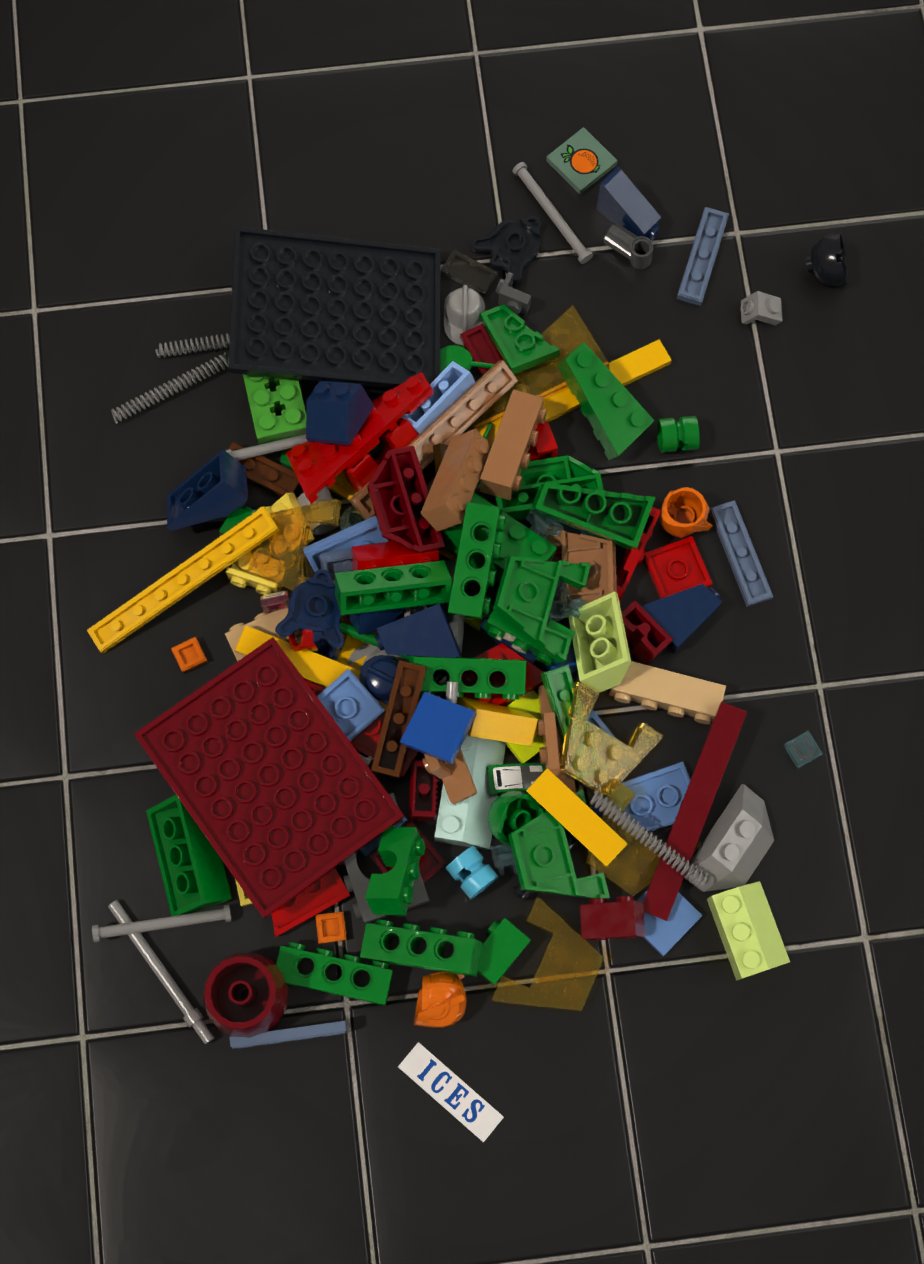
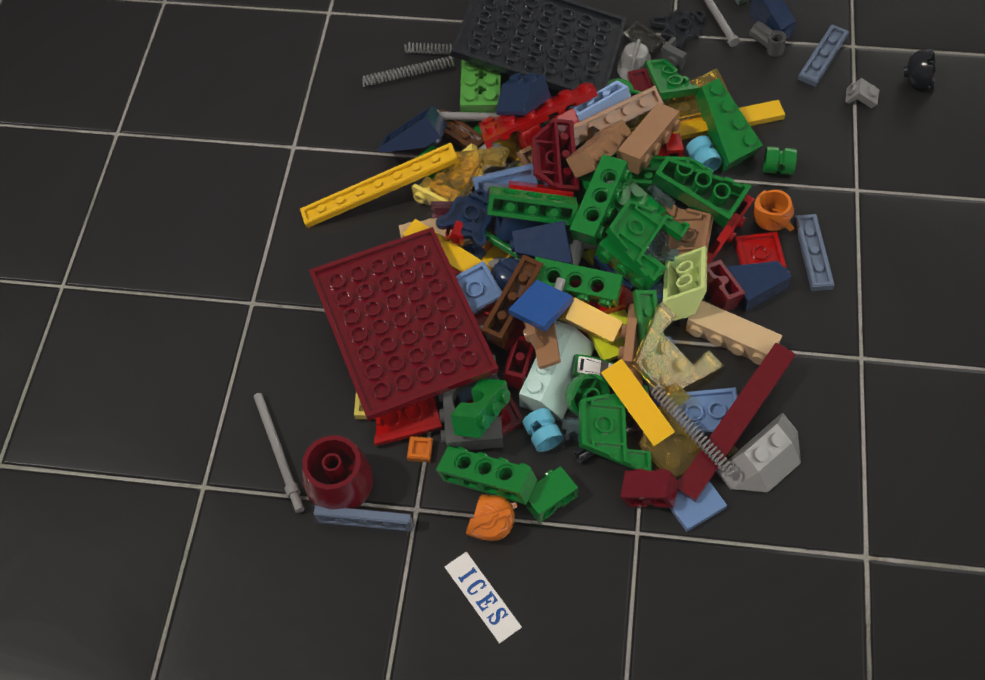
camera: 20 degrees right, 15 degrees down
(161, 923) = (289, 415): light grey bar -> none
(187, 861) = (324, 375): green slope -> none
(189, 655) = (368, 239): orange tile -> none
(375, 992) = (440, 502): green brick -> none
(564, 972) = (600, 522): clear yellow wing -> none
(581, 443) = (704, 152): none -> medium azure wheel
(748, 930) = (763, 525): yellowish green slope -> none
(803, 749) = (838, 400): clear light blue tile -> none

